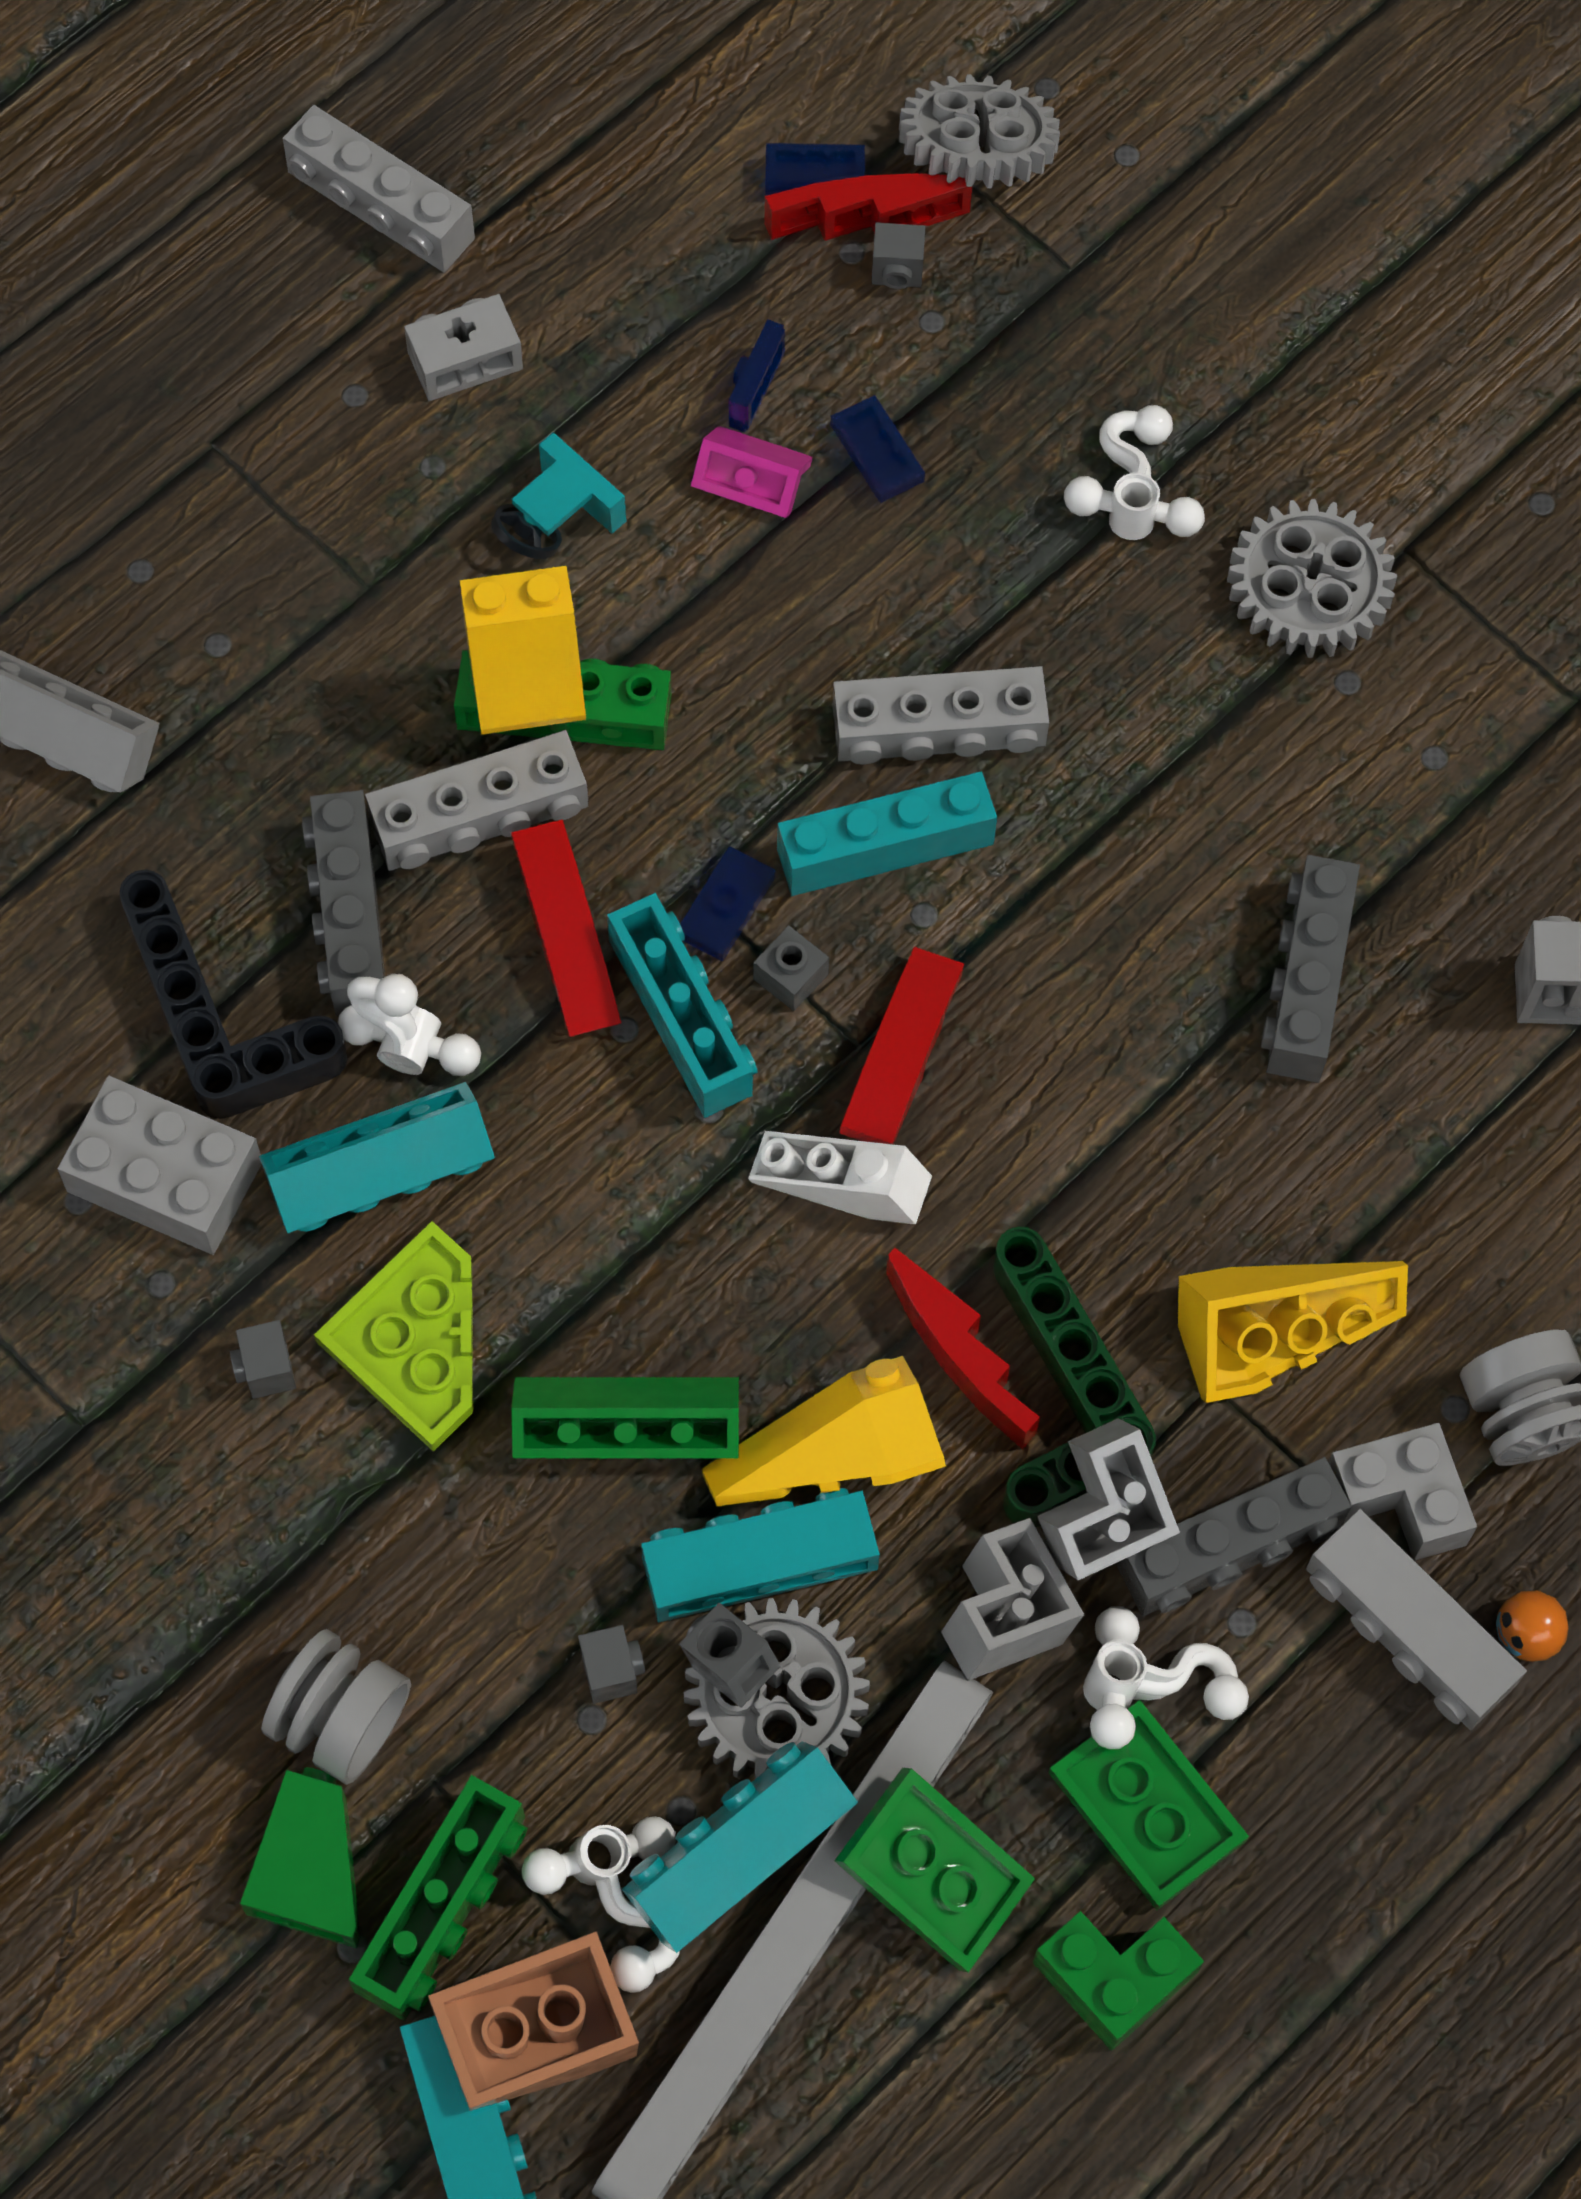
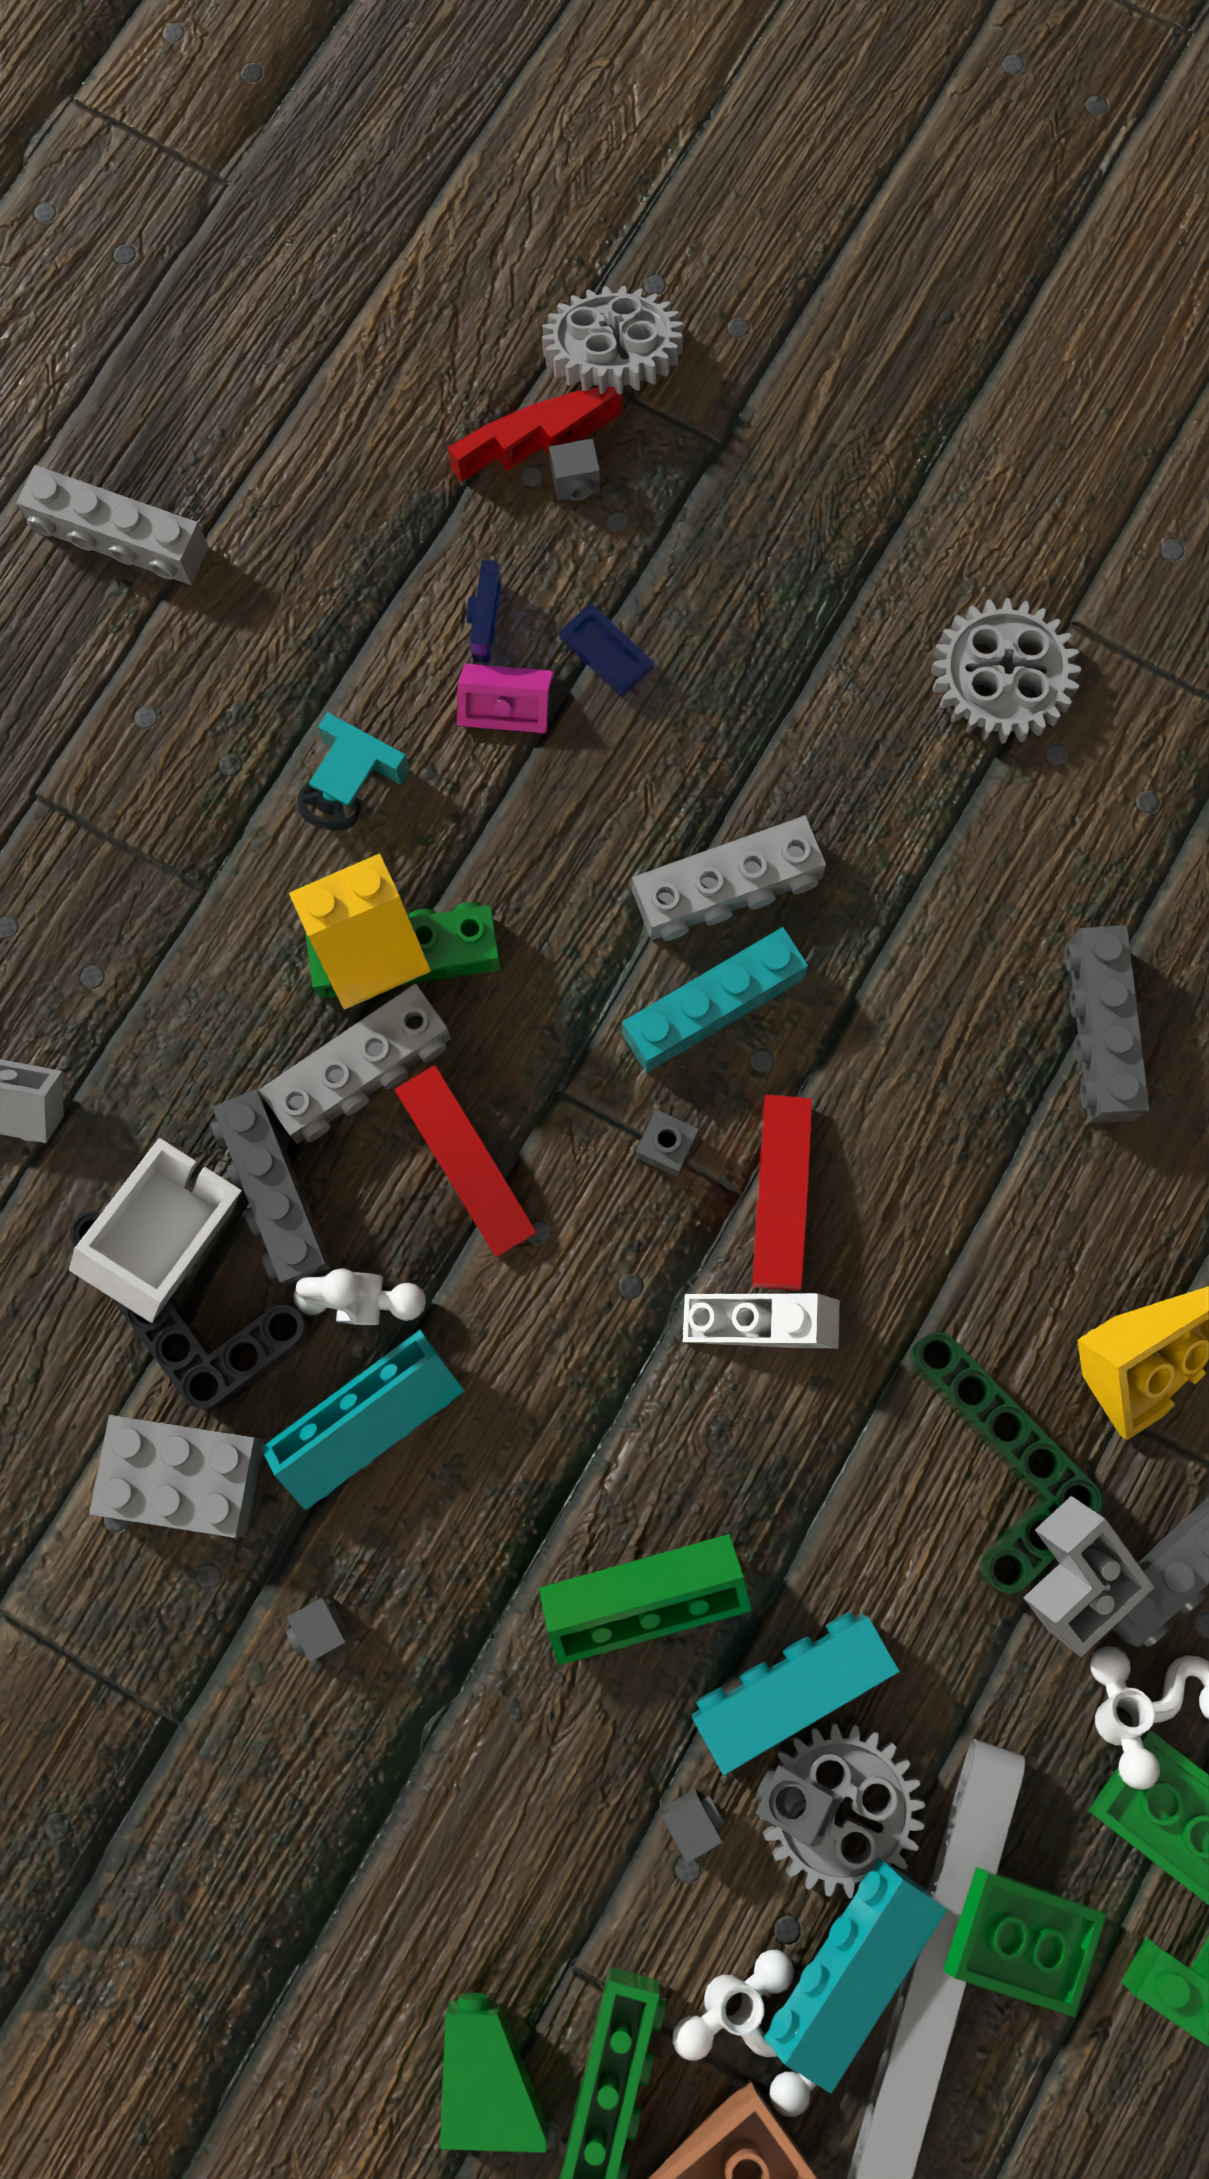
camera: 10 degrees left, 10 degrees up
(207, 904) = (153, 1231): none -> white piece
(328, 1702) = (470, 1942): light grey wheel -> none
(413, 1336) = (439, 1569): lime plate -> none
(463, 347) = (249, 650): light grey brick -> none
(680, 1004) = (584, 1207): teal brick -> none
(726, 903) = (593, 1097): clear blue plate -> none
(804, 164) = (473, 408): clear blue plate -> none
(853, 1429) = (836, 1565): yellow wedge -> none
(949, 1332) = (894, 1439): red slope -> none
(1019, 1602) = (1031, 1675): light grey brick -> none
(1086, 495) = (795, 646): white piece -> none

